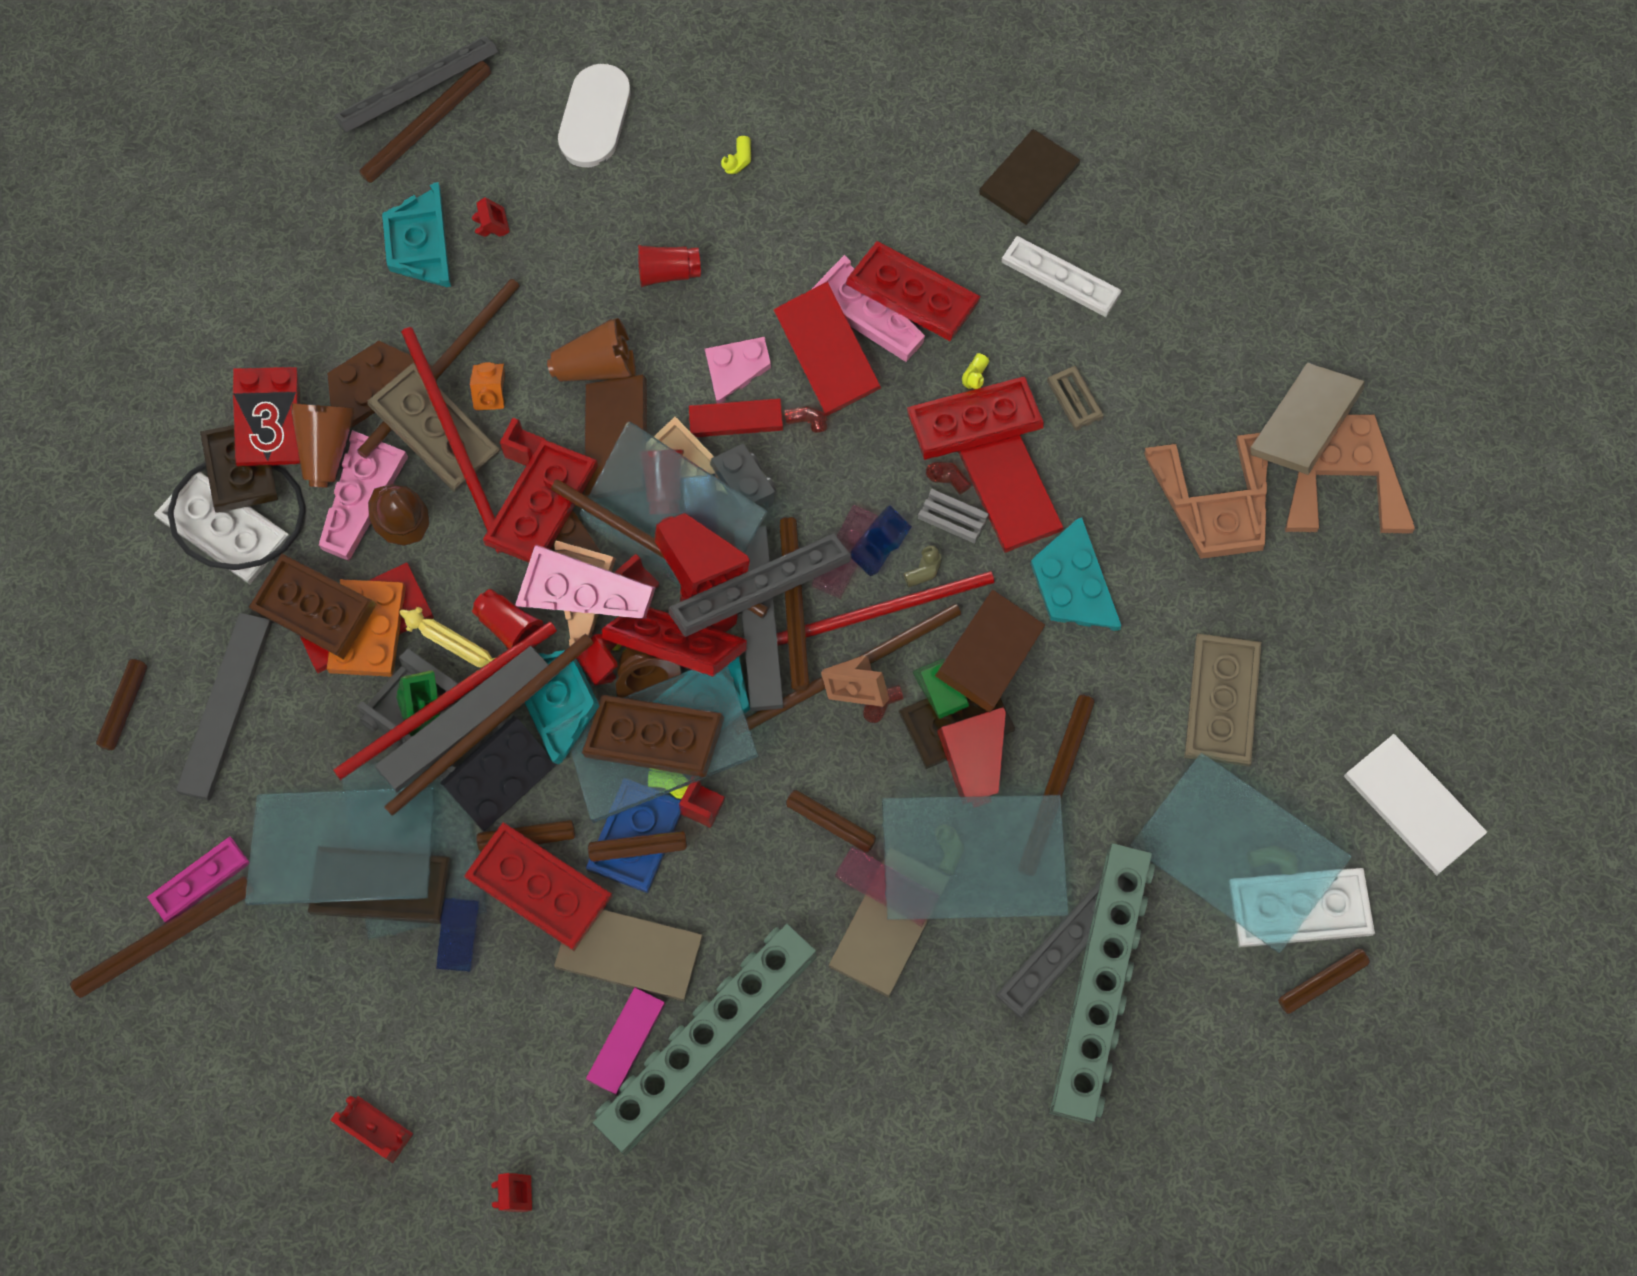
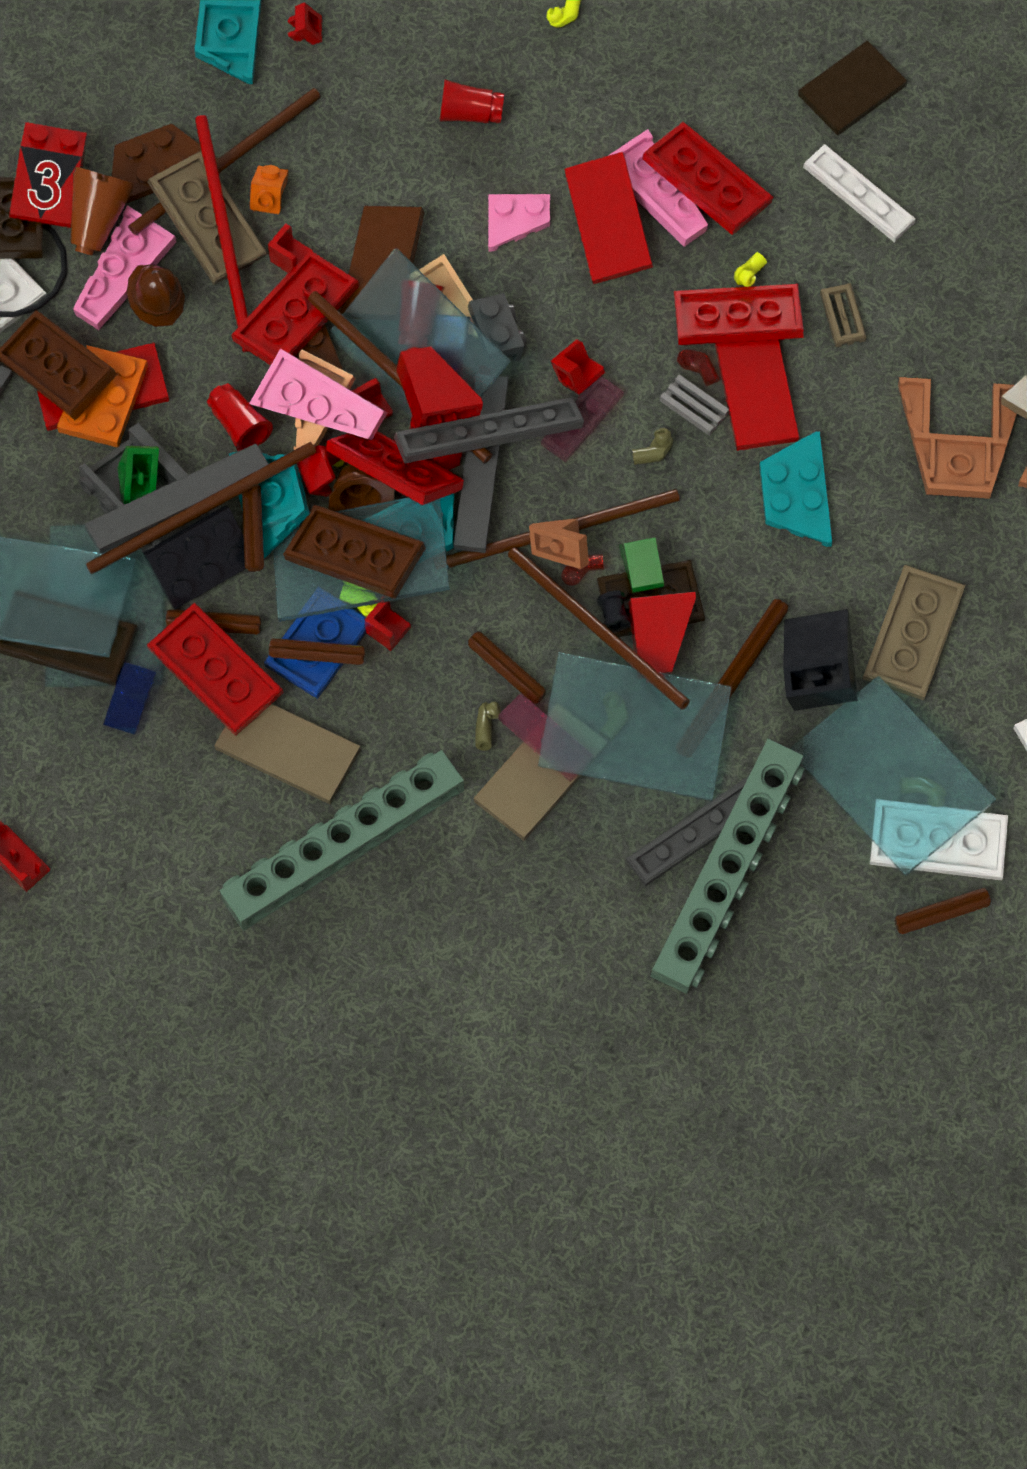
camera: 10 degrees right, 0 degrees up
(442, 702) = (160, 479): red piece -> none
(446, 637) = (181, 424): light yellow wheel -> none
(513, 1192) = (132, 939): red tile -> none
(546, 734) = (253, 529): none -> reddish brown axle
(595, 355) = (379, 179): dark orange cone -> none
(625, 1041) = (266, 827): dark pink tile -> none
(735, 418) = (503, 268): red tile -> none
(794, 613) = (517, 465): reddish brown axle -> none
(809, 415) = (574, 278): clear red arm -> none
(822, 889) = (483, 729): none -> olive arm
(830, 504) = (576, 368): none -> red panel
(879, 540) = (616, 414): clear blue slope -> none
(892, 606) = (606, 479): red piece -> none
(916, 764) = (599, 628): none -> reddish brown piece
(925, 742) = (614, 610): none -> black bush
(990, 651) = (697, 537): reddish brown tile -> none
(1139, 748) = (819, 660): none -> black slope

